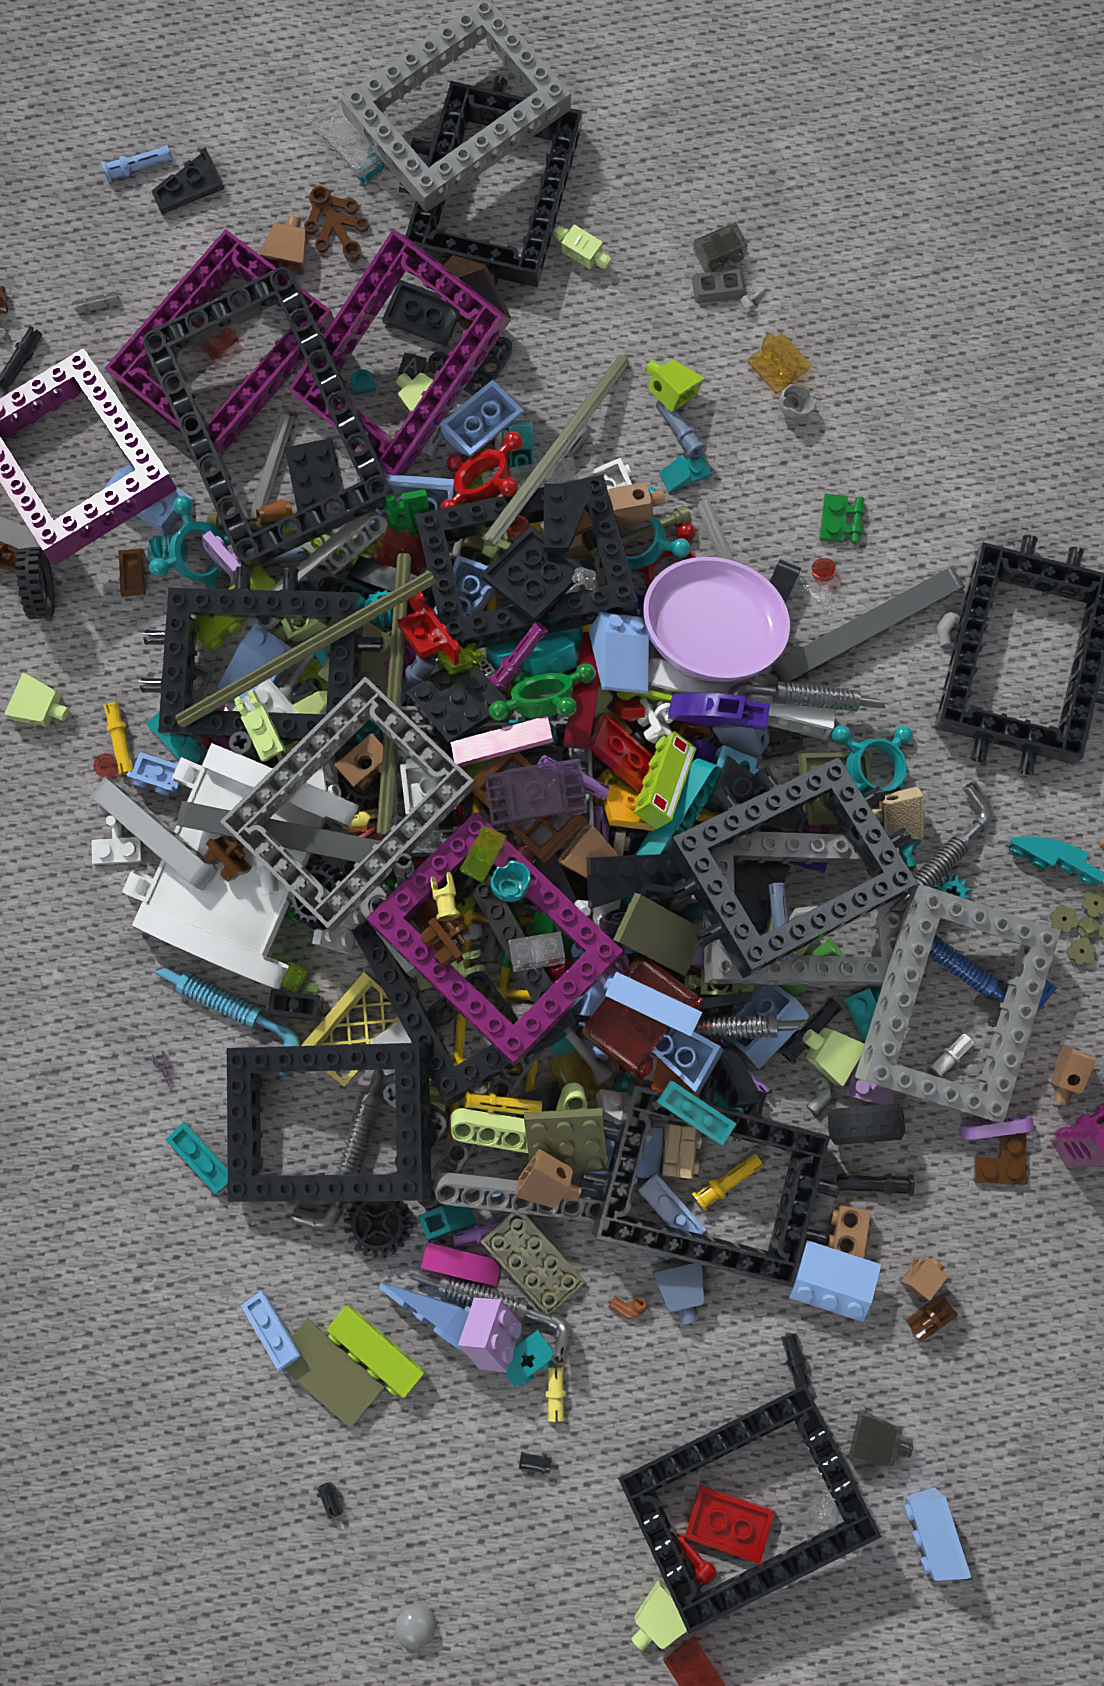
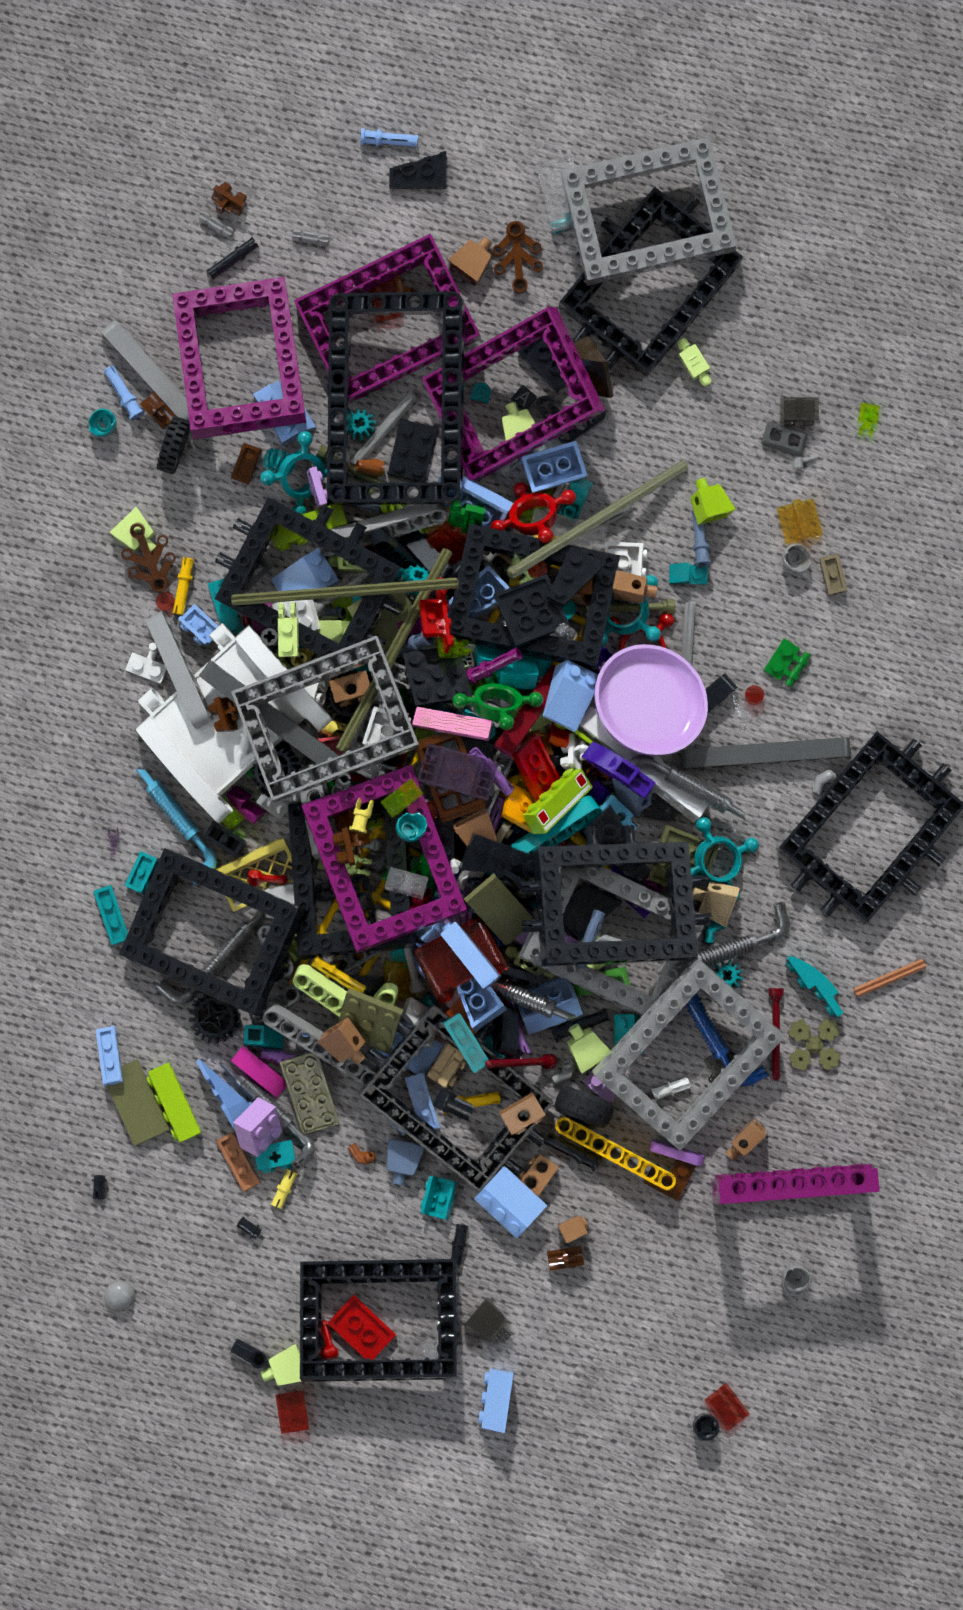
camera: 25 degrees right, 5 degrees up
(66, 726) = (150, 560): none -> reddish brown plant
(213, 1090) = (142, 872): none -> teal bracket
(249, 475) = (367, 422): none -> teal gear
(294, 951) = (241, 801): none -> magenta slope
(352, 1032) = (255, 878): none -> red piece
(485, 1387) = (238, 1162): none -> nougat tile
(603, 1624) = (247, 1353): none -> black piece
(707, 1195) = (449, 1102): none -> black piece
(745, 1315) = (438, 1197): none -> teal bracket
(788, 1171) = (529, 1104): none -> medium nougat brick
(793, 1091) = (547, 1061): none -> dark red piece
(797, 223) = (868, 415): none -> clear neon green plate
(844, 402) = (833, 574): none -> dark tan plate
(941, 1159) = (605, 1152): none -> yellow beam
(1017, 892) = (776, 995): none -> dark red piece

